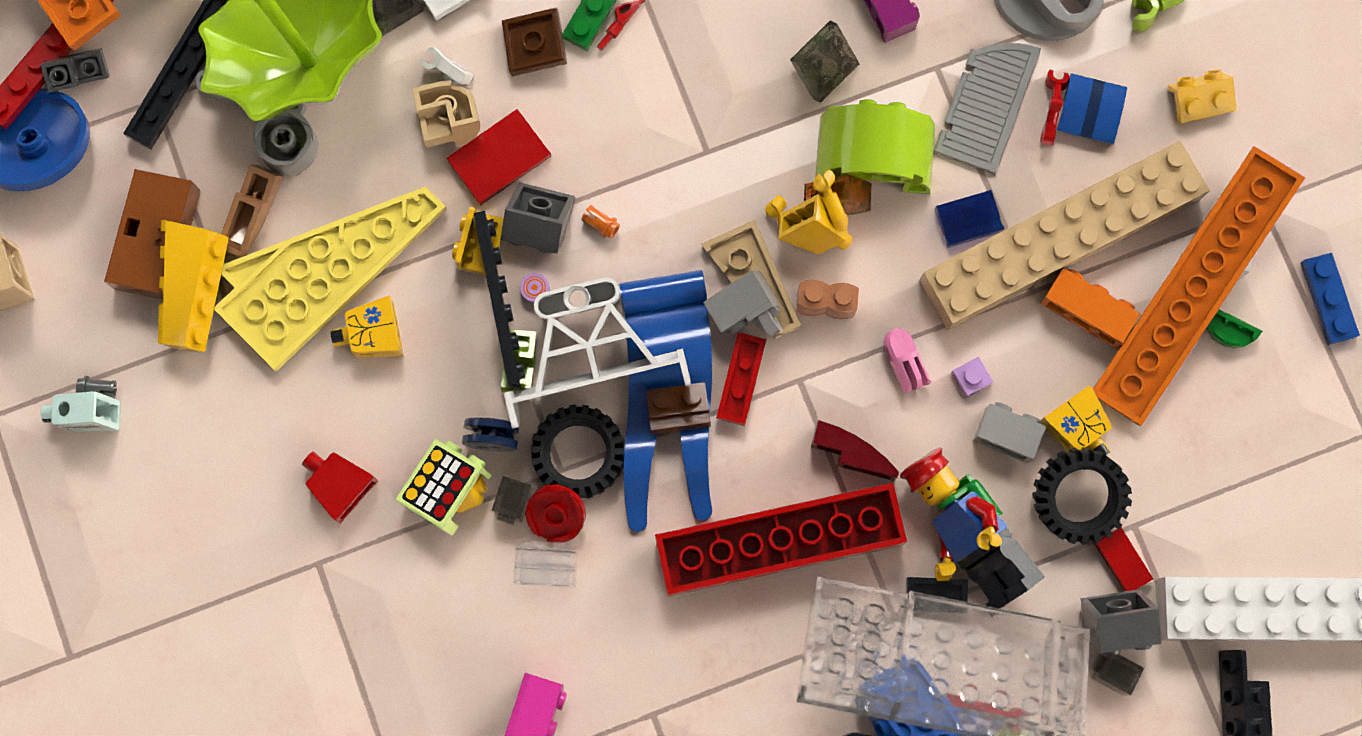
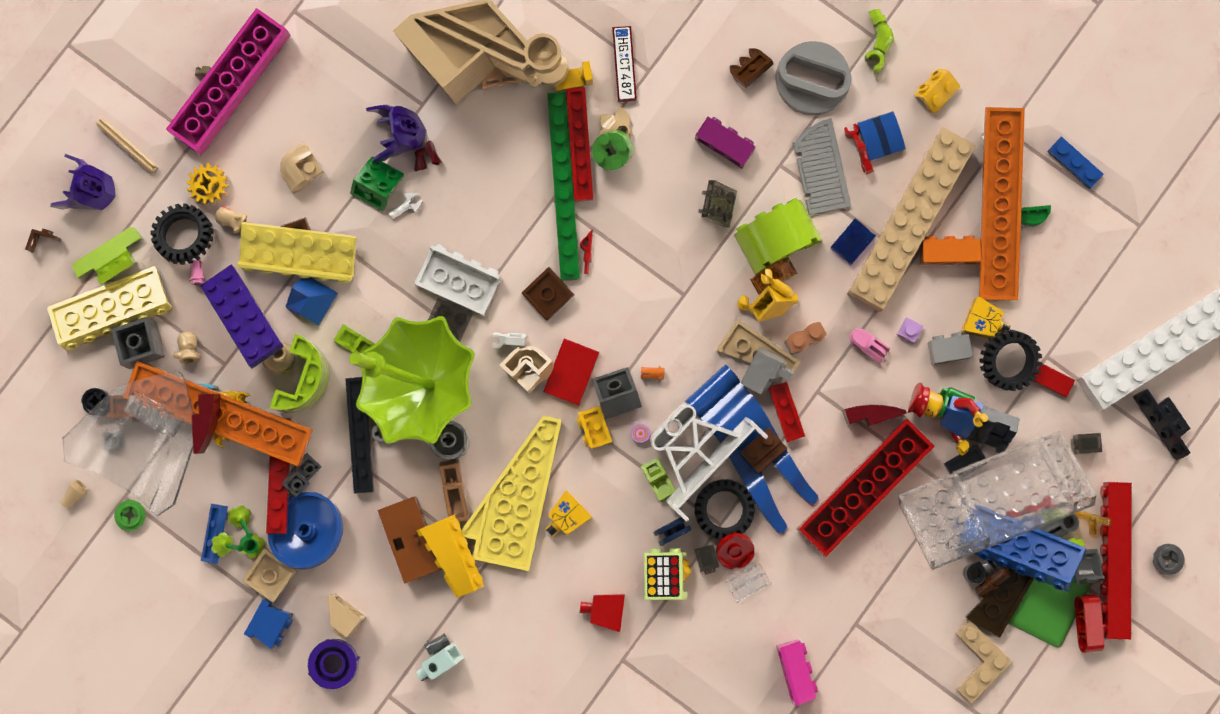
camera: 30 degrees left, 5 degrees up
(502, 311) = (623, 448): black plate -> none
(1121, 621) = (1073, 415): dark grey brick -> none

